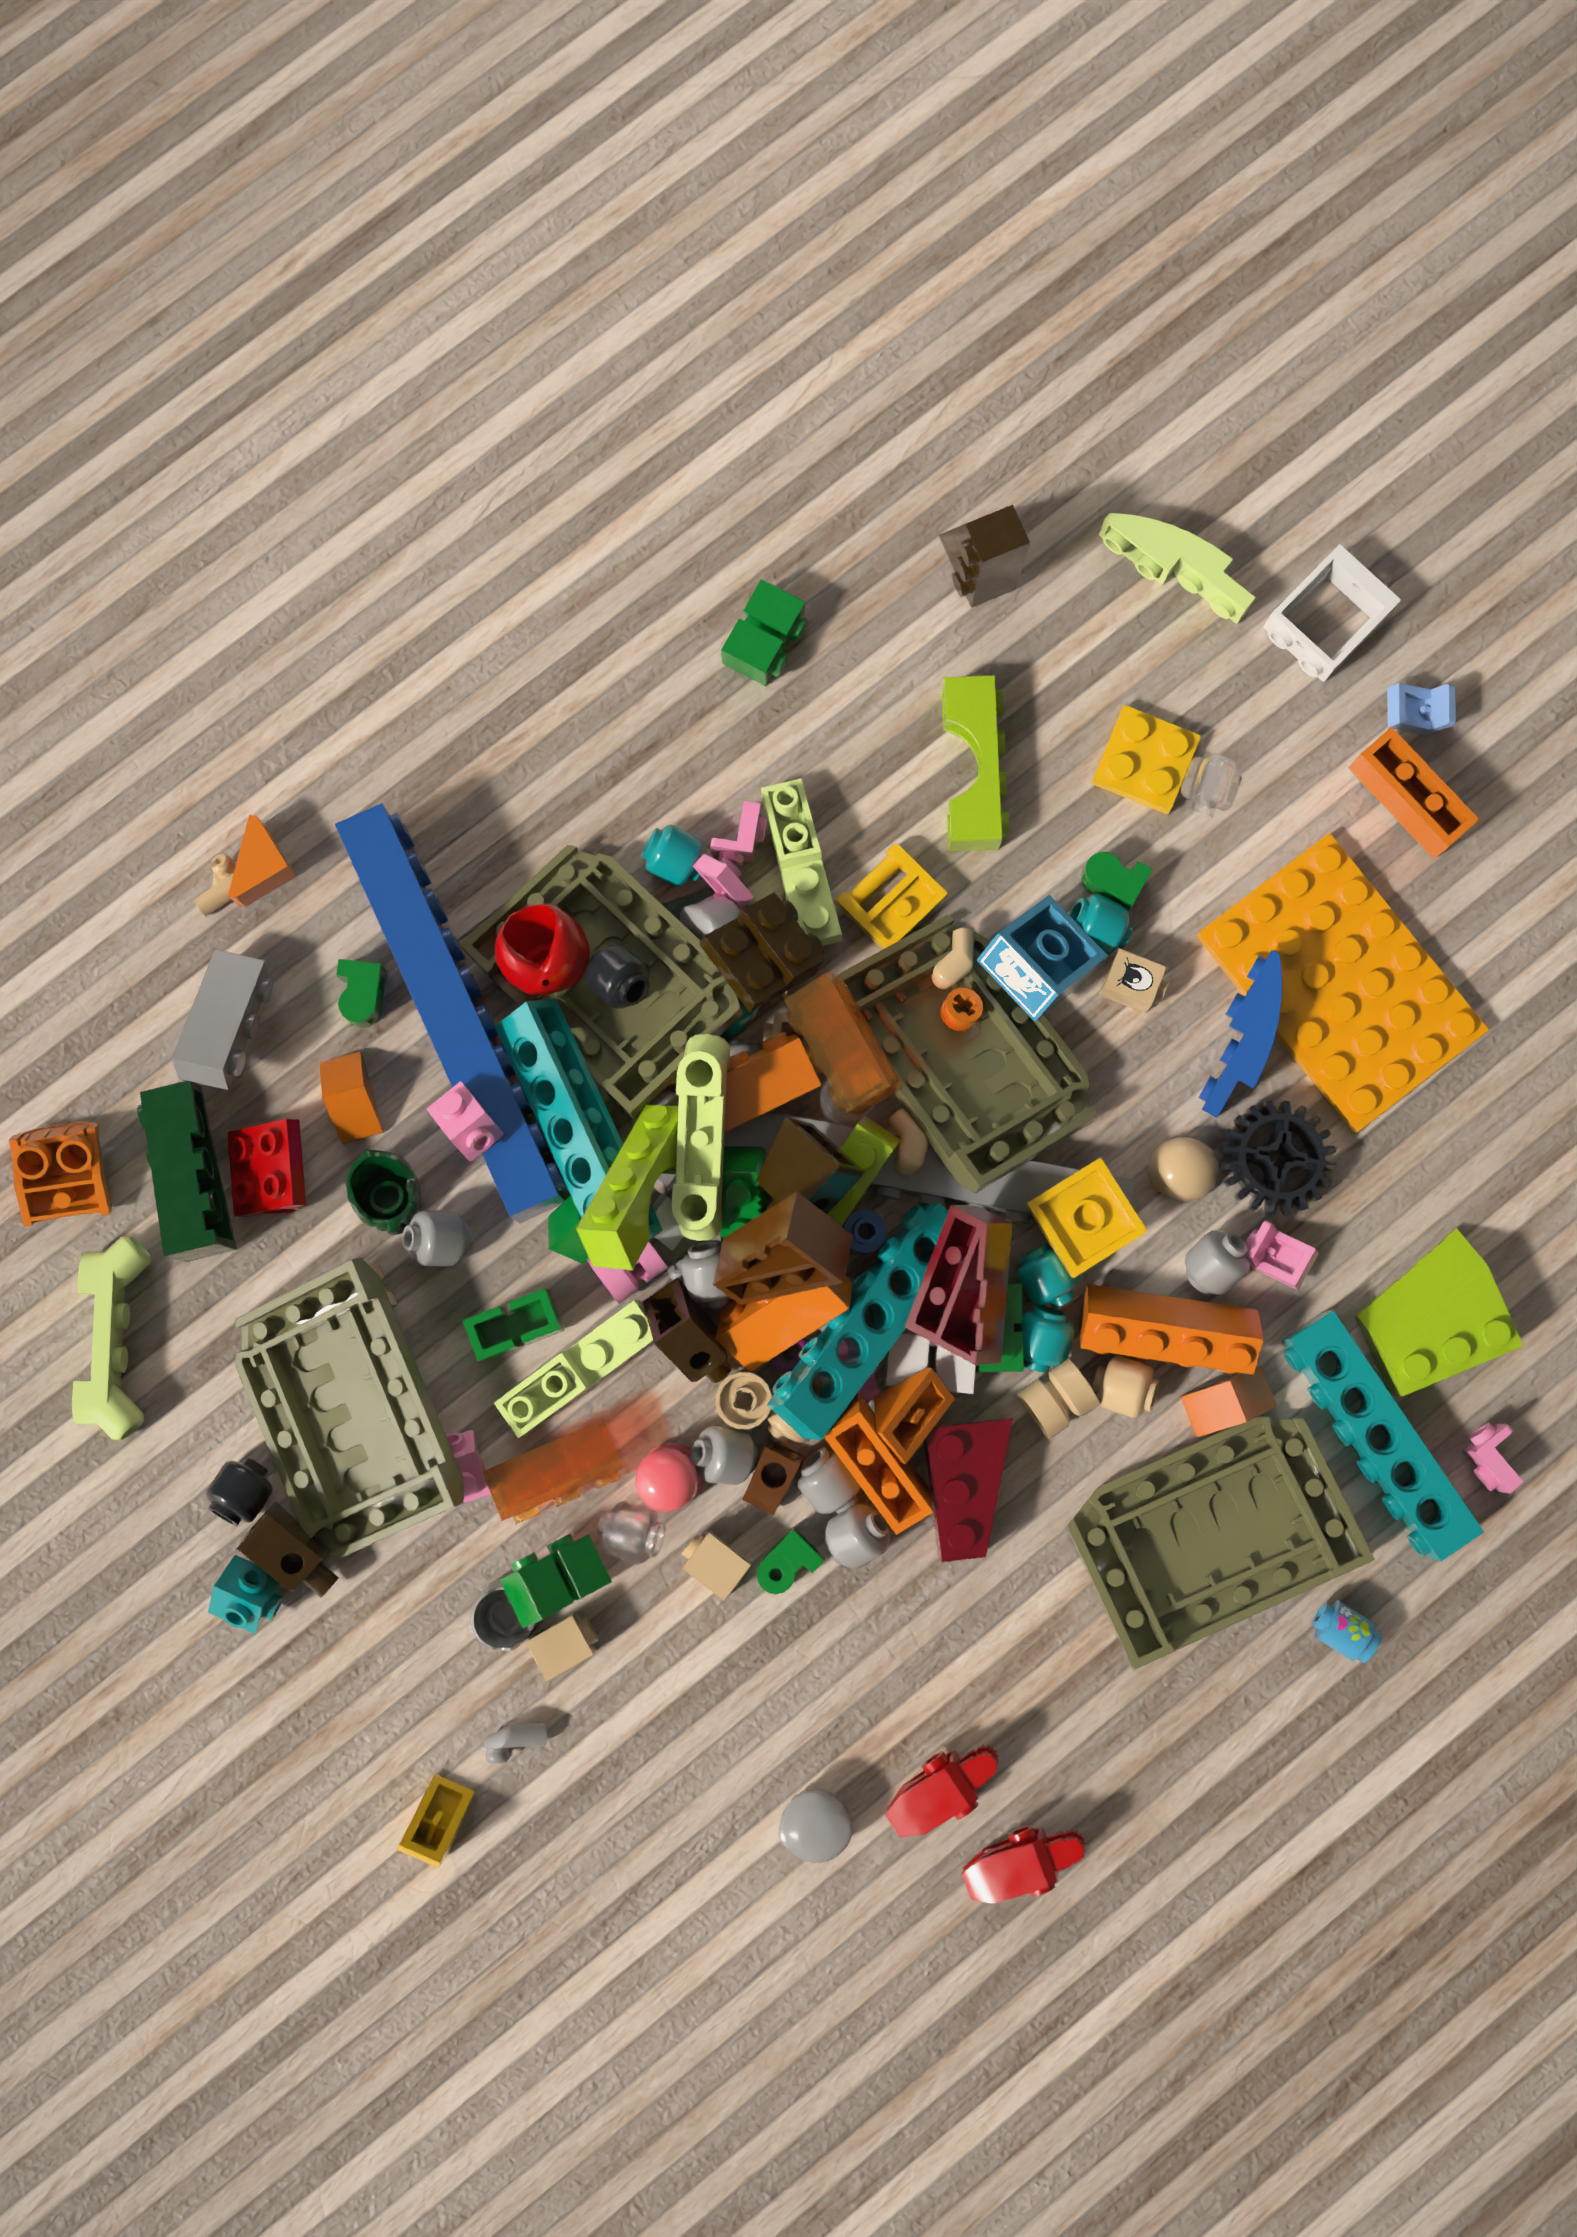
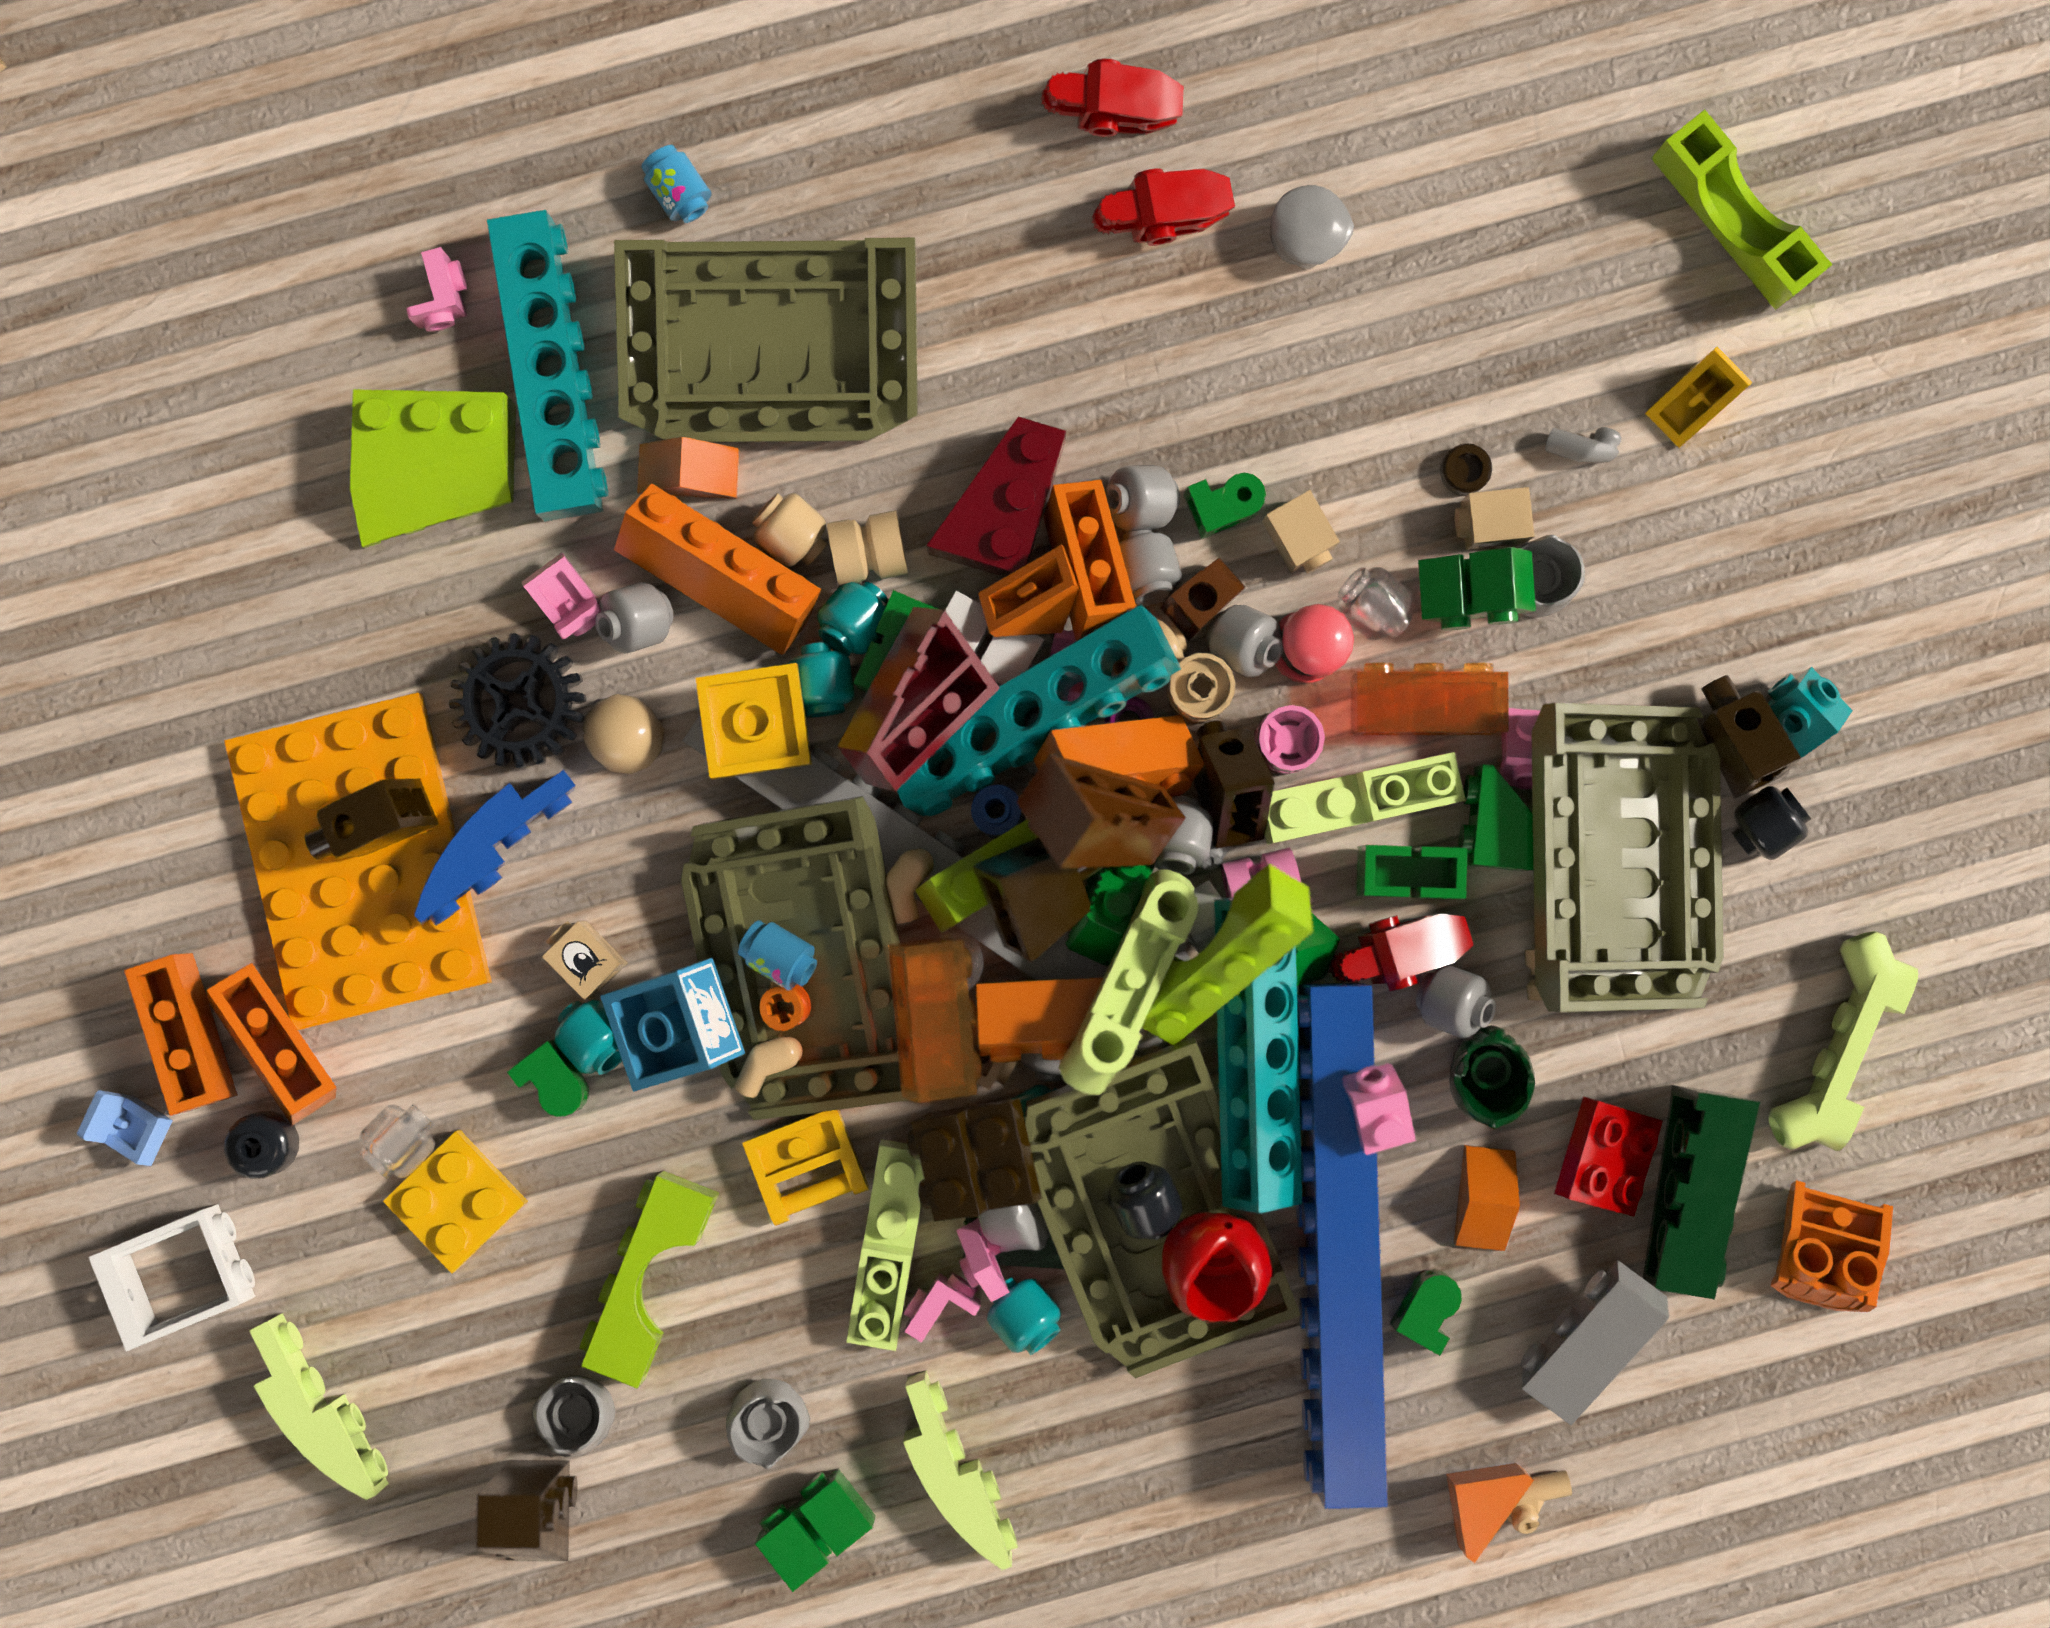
camera: 155 degrees left, 5 degrees up
(431, 1977) = (1706, 174): none -> lime arch
(459, 1395) = (1498, 824): none -> green slope
(494, 1261) = (1400, 951): none -> hinge
(603, 1678) = (1466, 469): none -> dark brown tile
(655, 1389) = (1289, 739): none -> bright pink wheel
(666, 705) = (959, 1491): none -> yellowish green slope
(835, 695) = (766, 1422): none -> light grey hair
(983, 640) = (573, 1415): none -> light grey hair
(985, 1044) = (778, 954): none -> dark azure brick
(1312, 737) = (276, 1138): none -> black head
(1341, 814) = (271, 1043): none -> orange brick
(1346, 1014) = (371, 819): none -> dark brown torso

